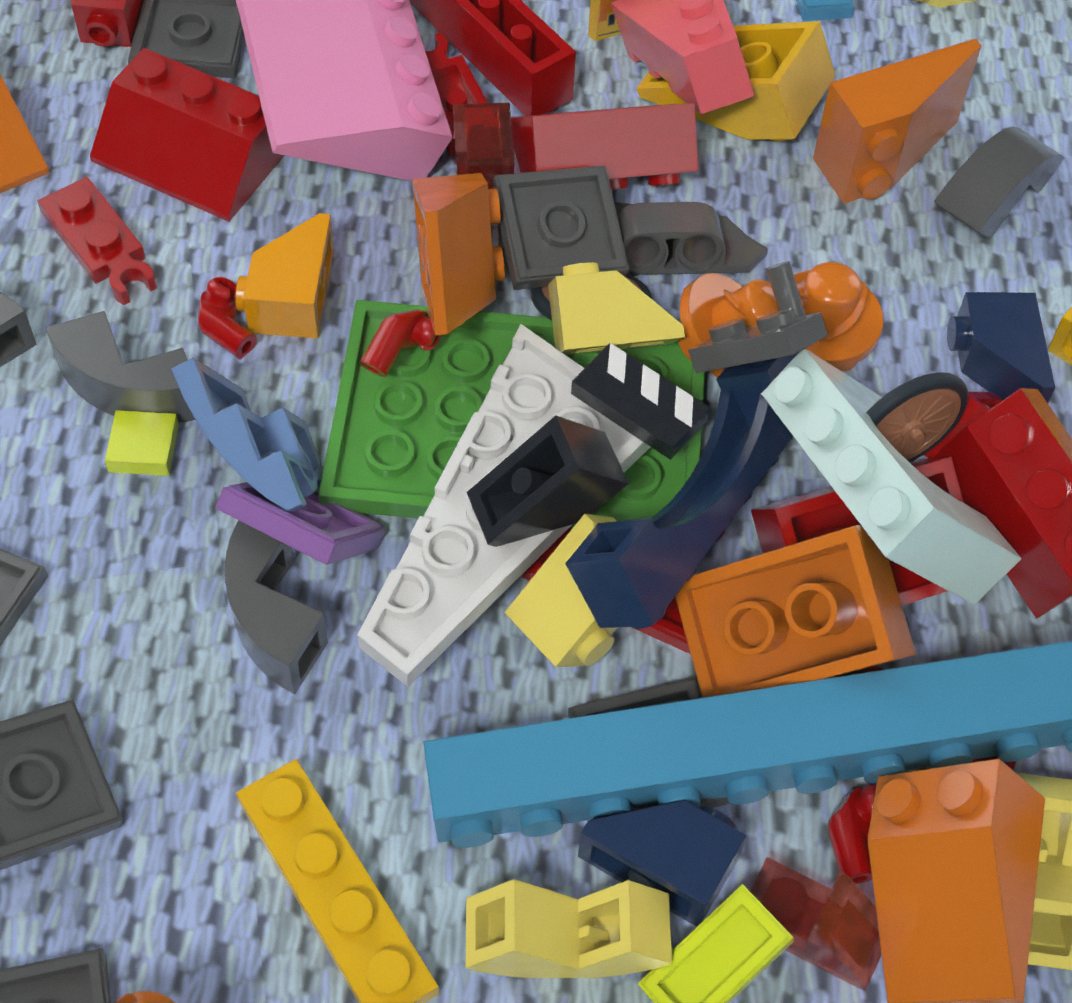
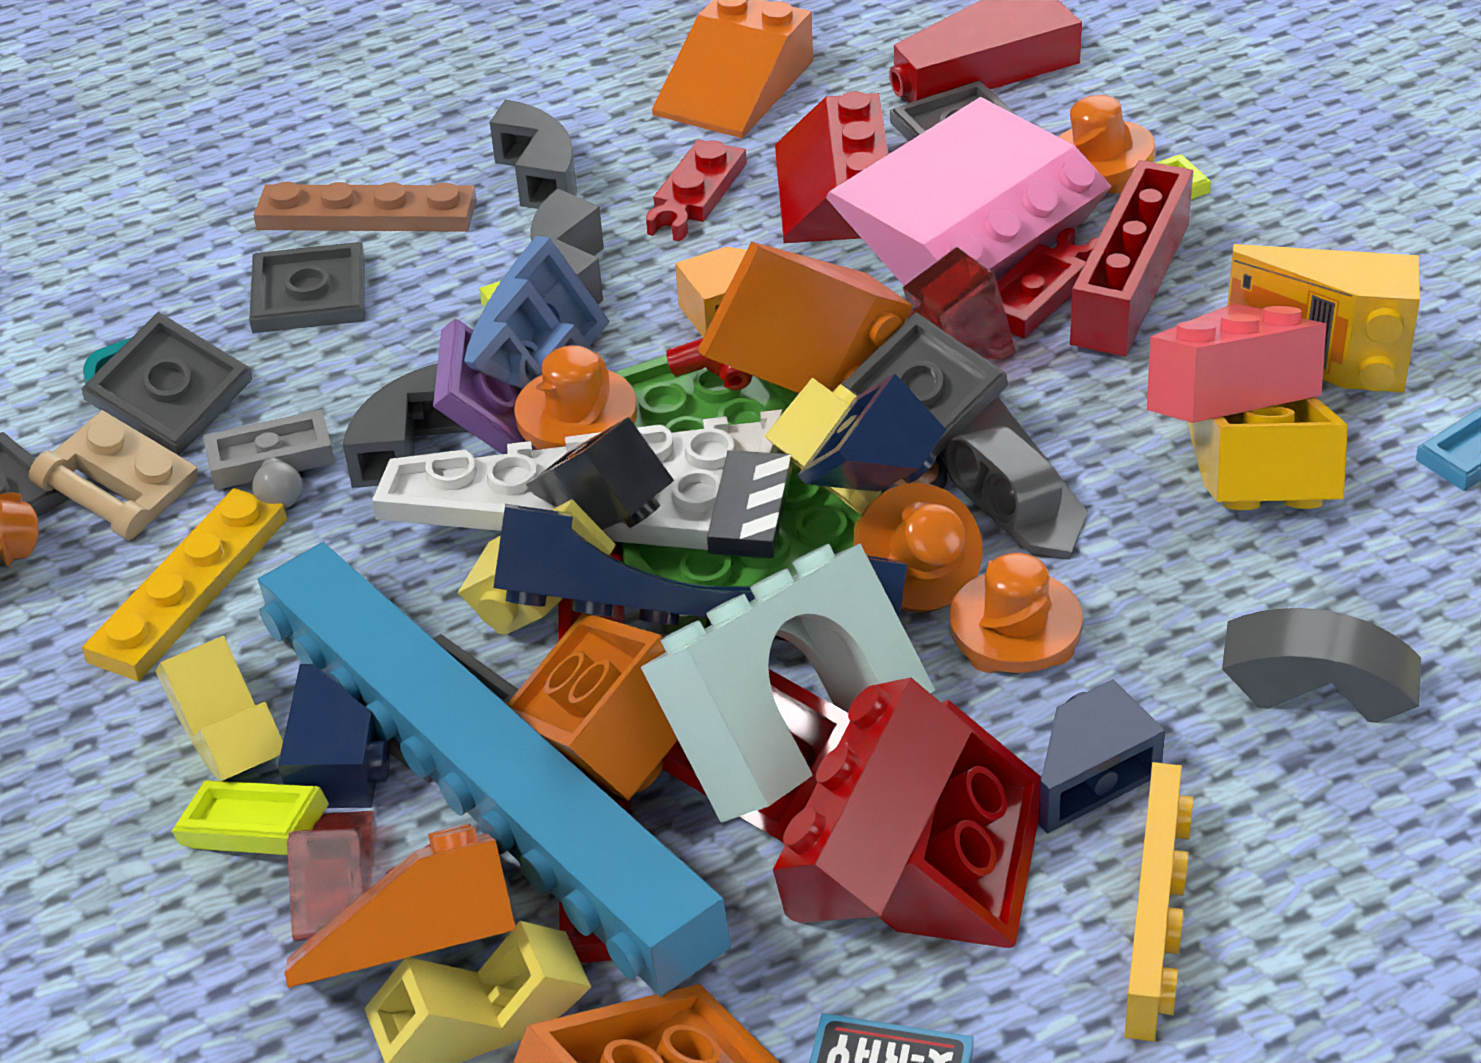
camera: 65 degrees right, 15 degrees down
(124, 875) = (122, 462): none -> tan plate
(207, 736) = (270, 455): none -> light grey plate
(218, 318) = (663, 284): red arm -> none
(382, 466) = (572, 398): none -> orange plate
(627, 140) = (1067, 385): slope -> none
(671, 277) = (876, 441): none -> dark blue slope
(773, 337) = (873, 529): dark grey plate -> none
(890, 118) = (1301, 542): orange slope -> none
(920, 412) = (853, 649): nougat wheel -> none

